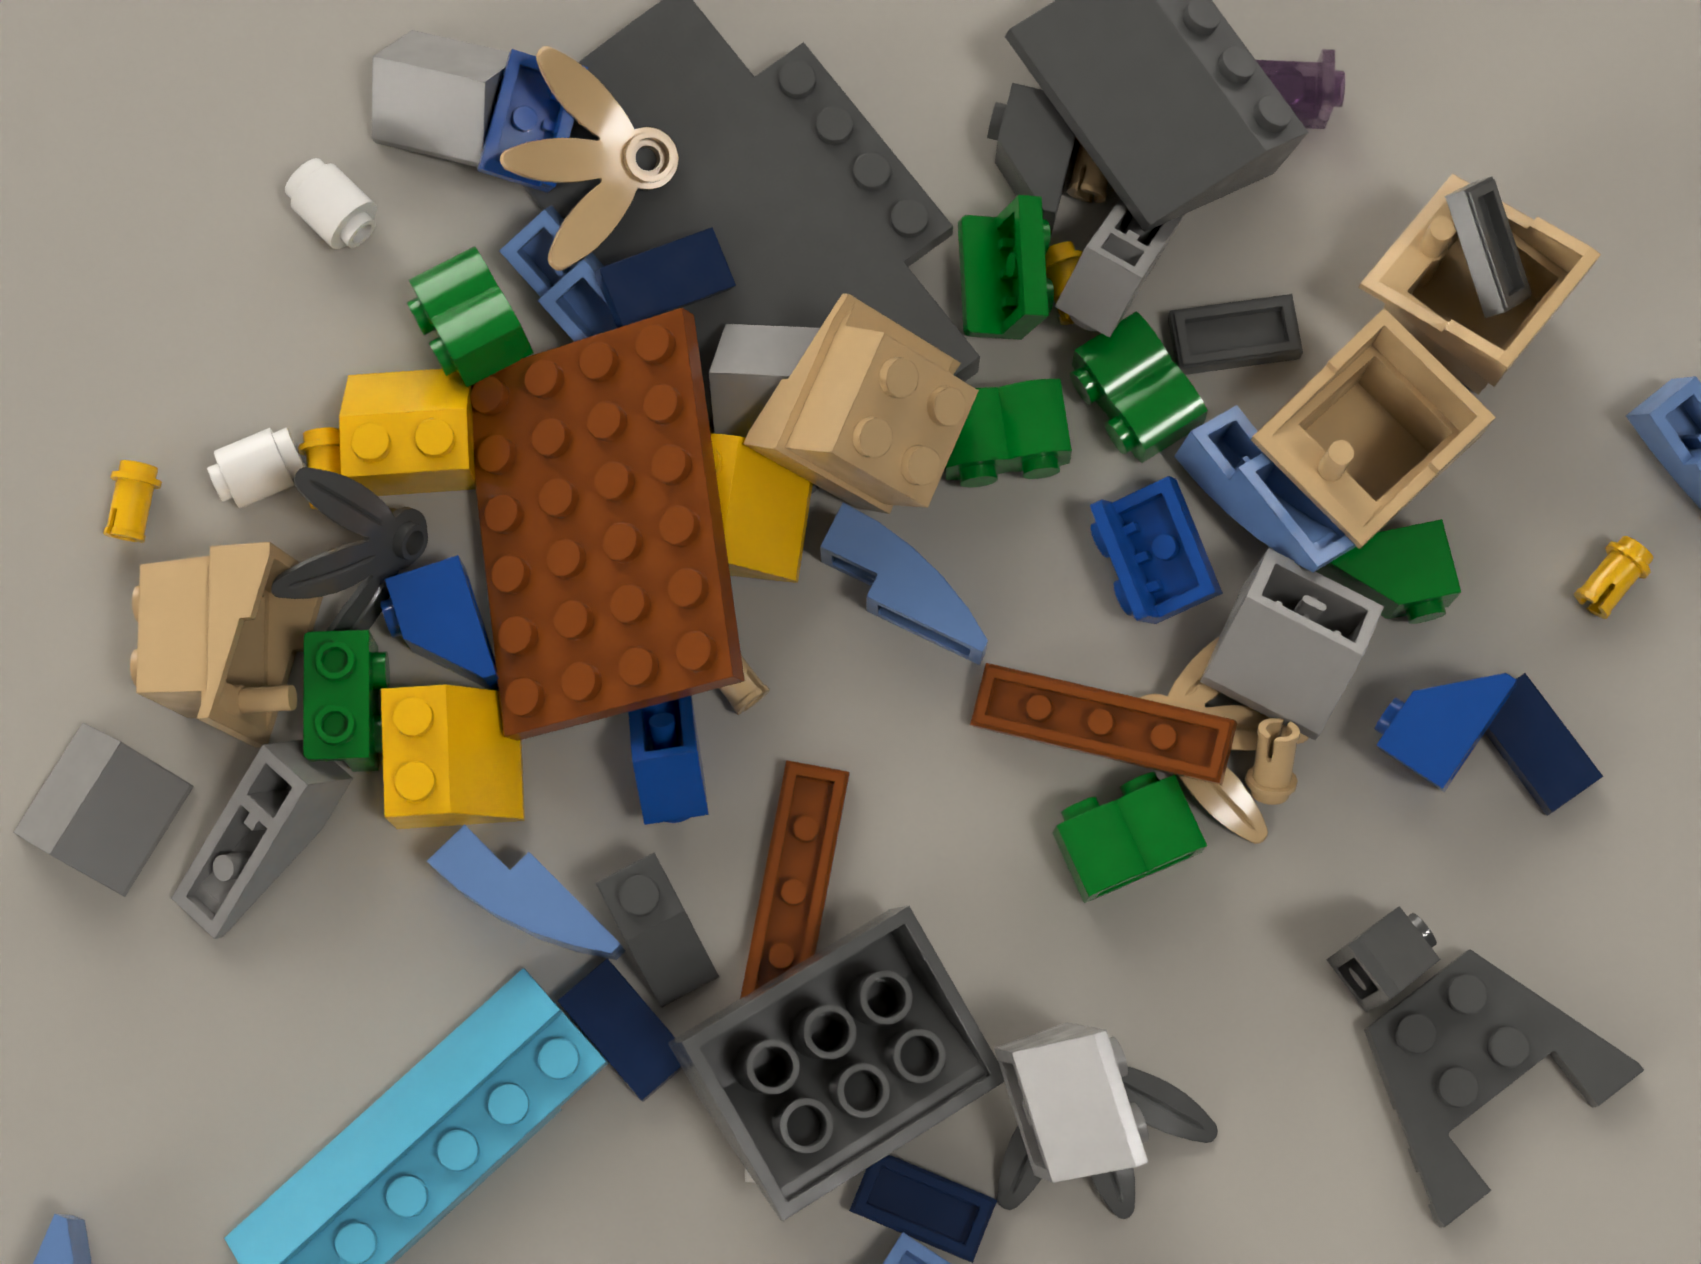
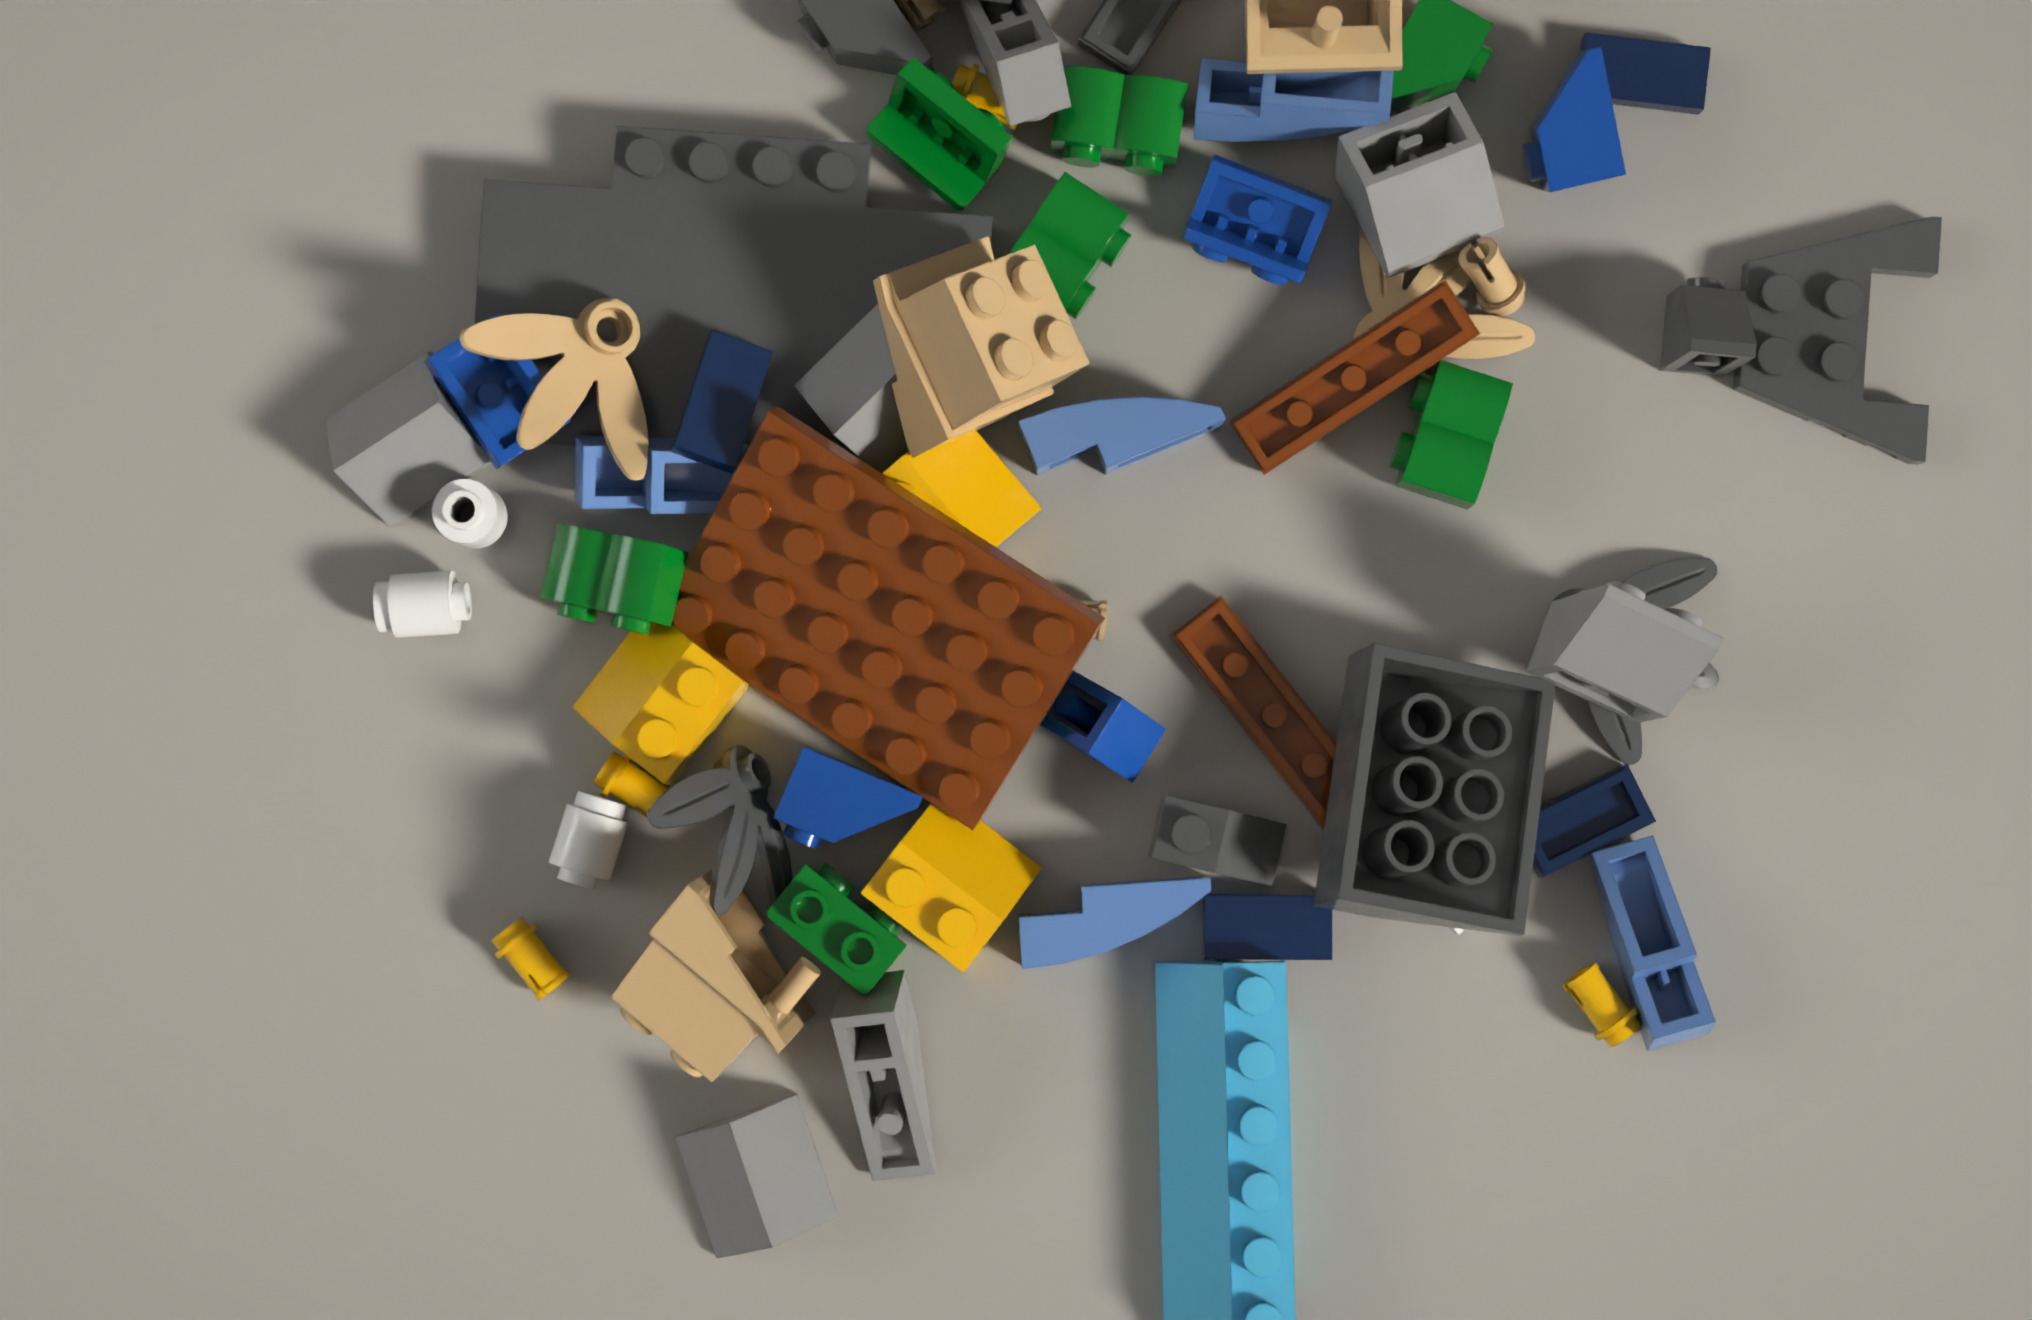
camera: 50 degrees left, 10 degrees up
(427, 179) = (488, 519): none -> white brick

